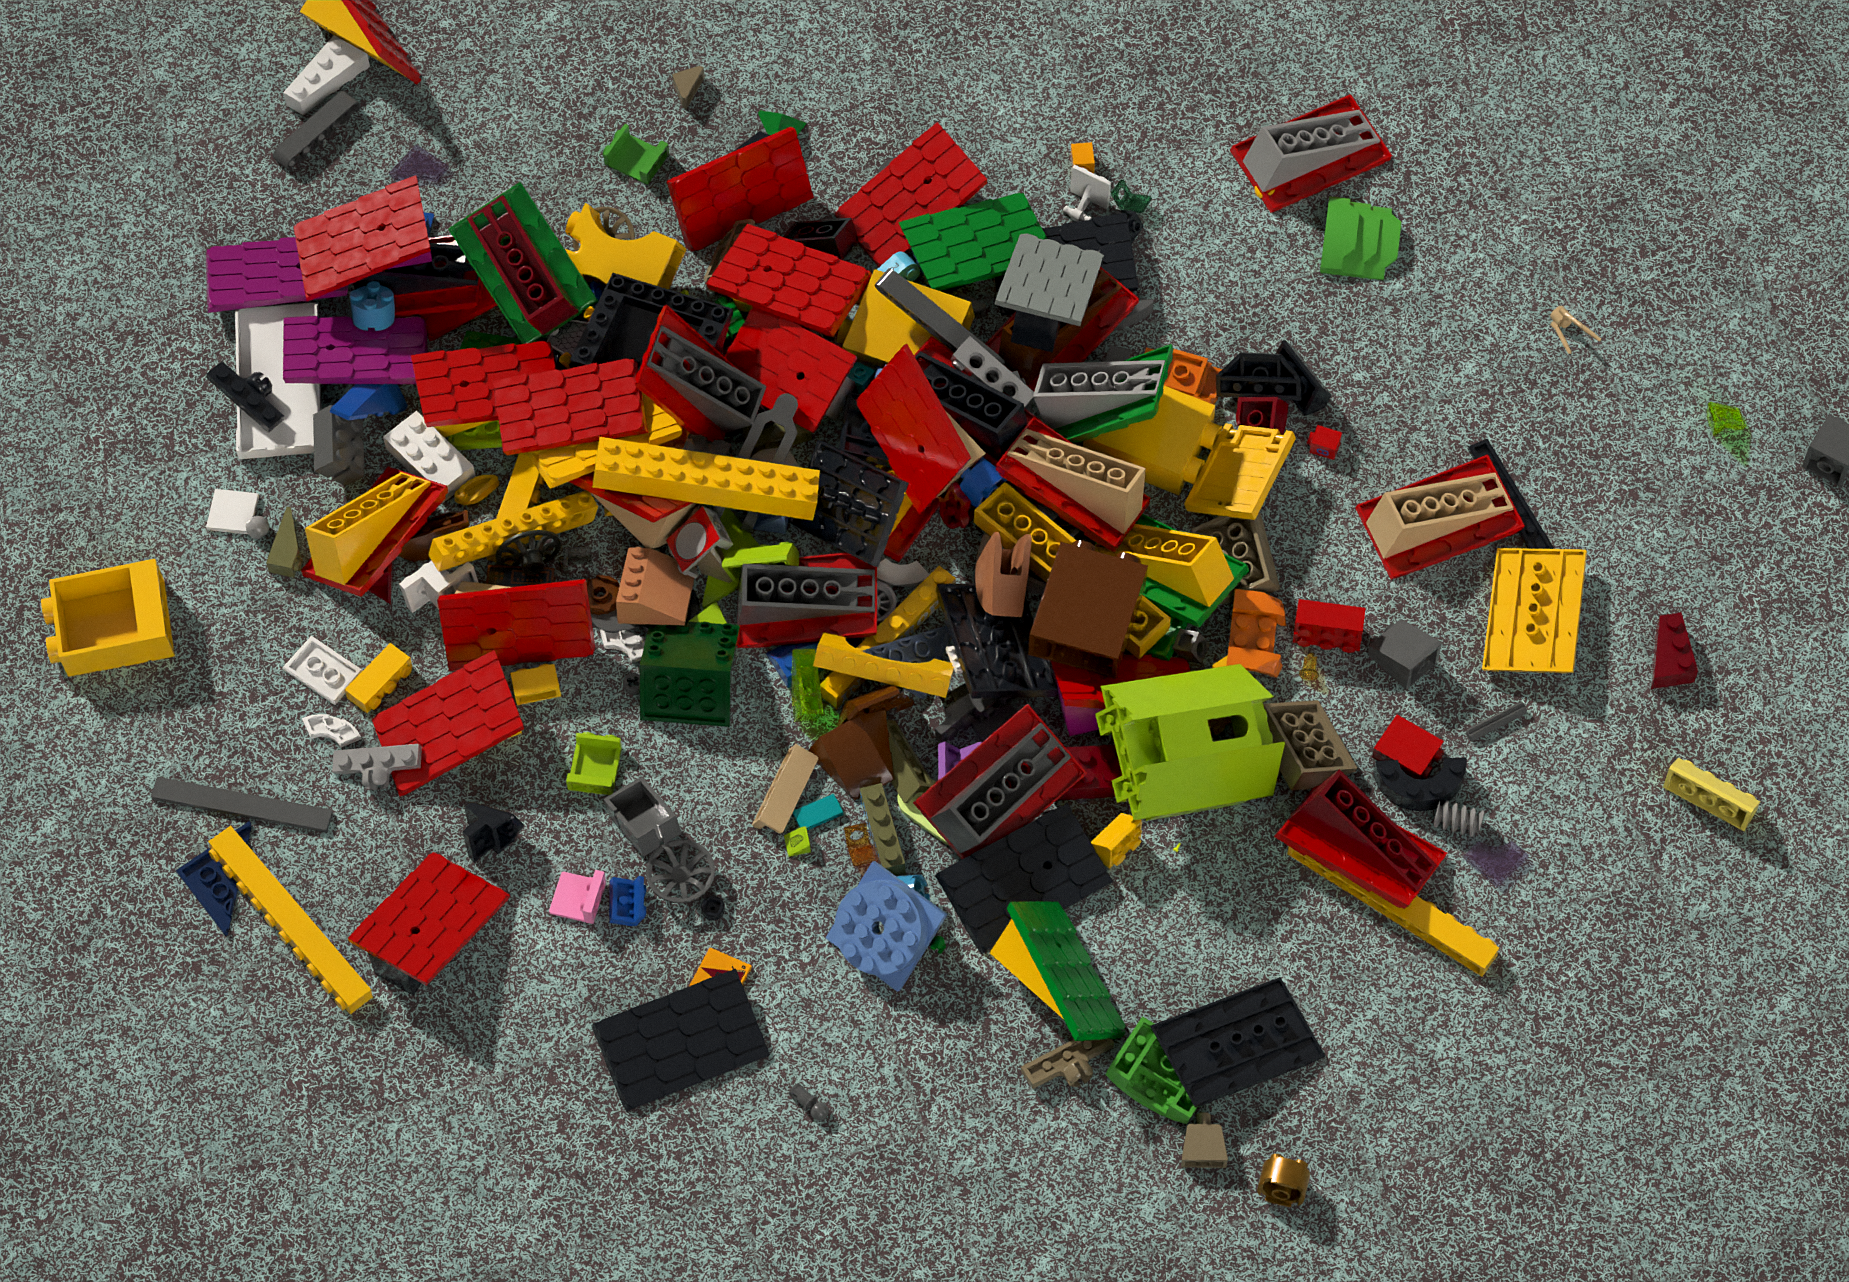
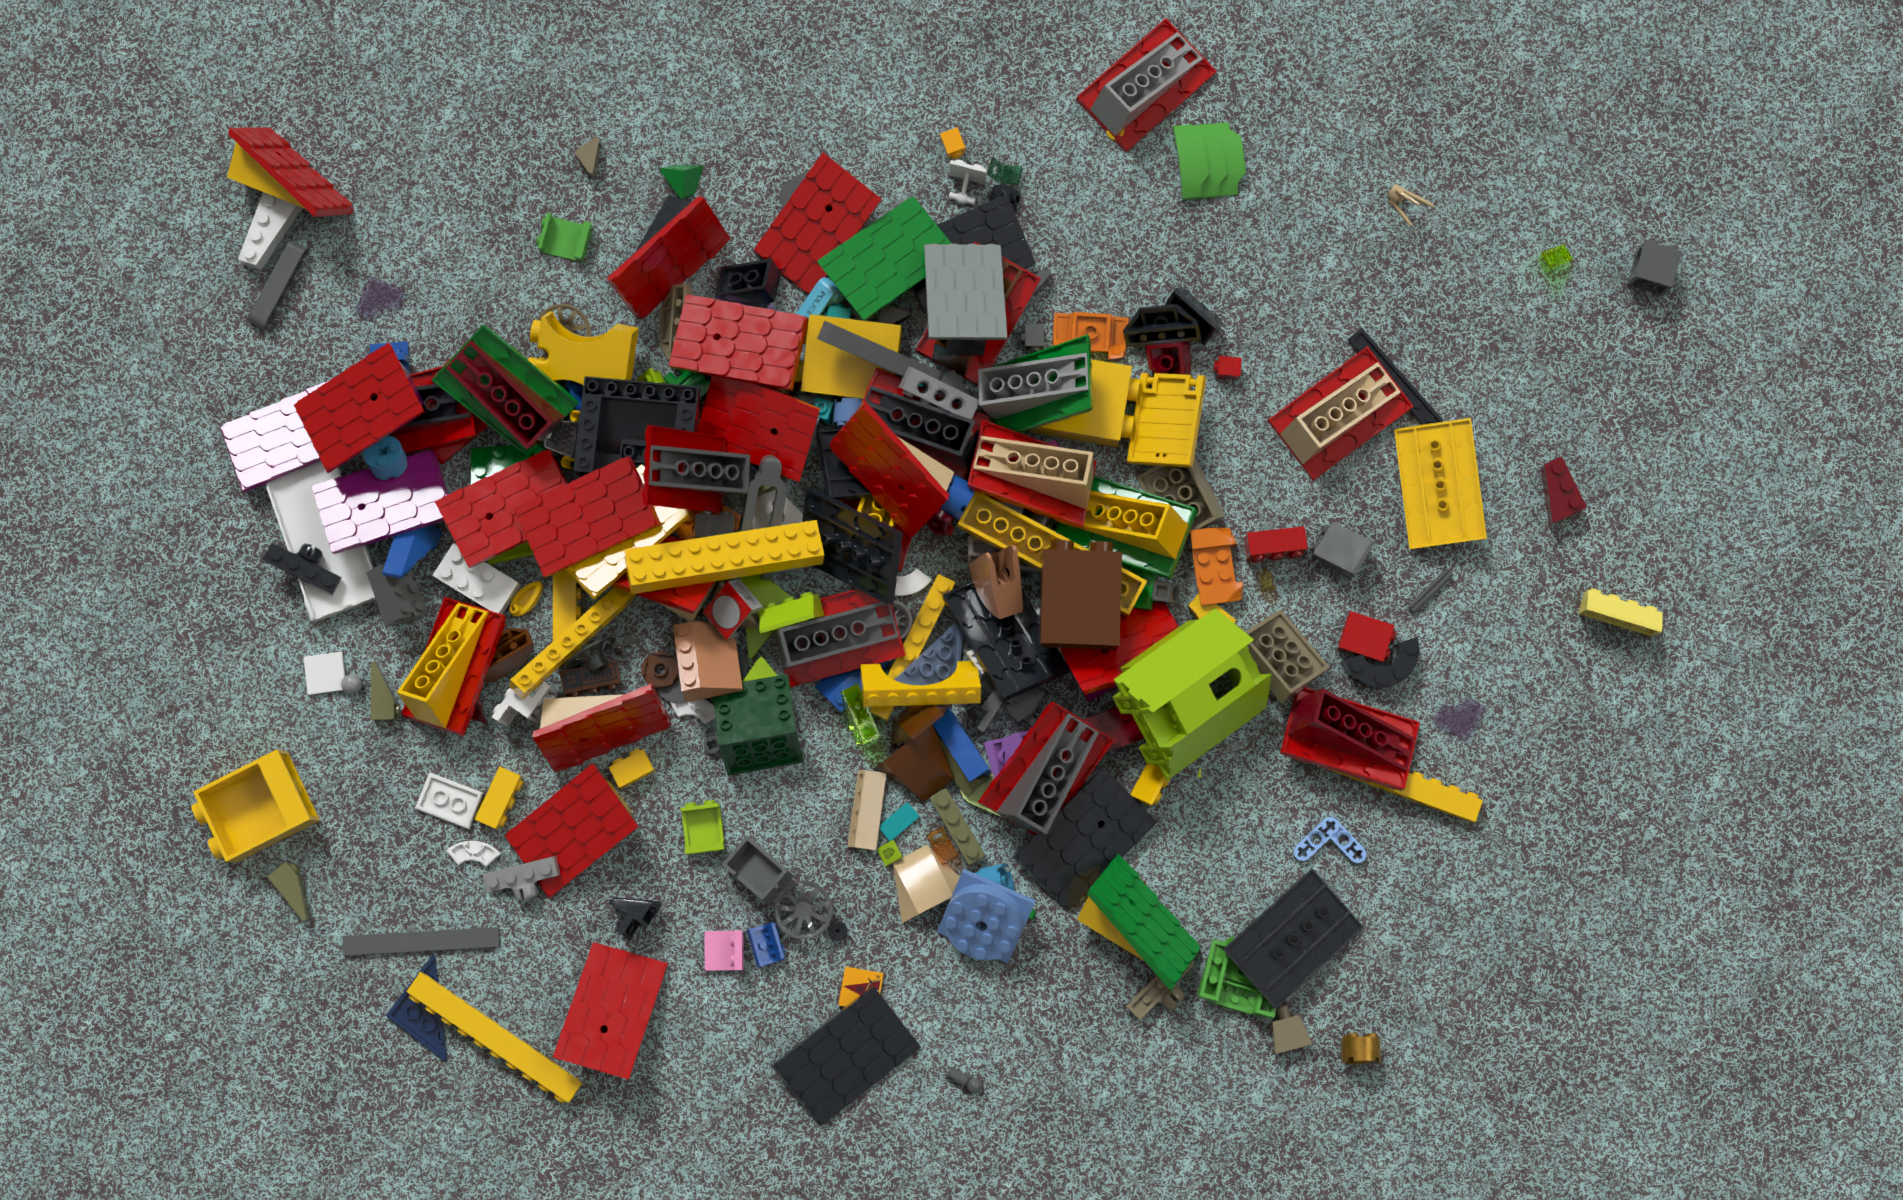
camera: 15 degrees left, 20 degrees up
(120, 710) = (290, 885): none -> olive slope
(822, 881) = (922, 882): none -> tan wedge
(911, 743) = (961, 746): none -> blue panel
(1314, 949) = (1333, 836): none -> light blue beam
(1457, 818) = (1422, 689): light grey piece -> none

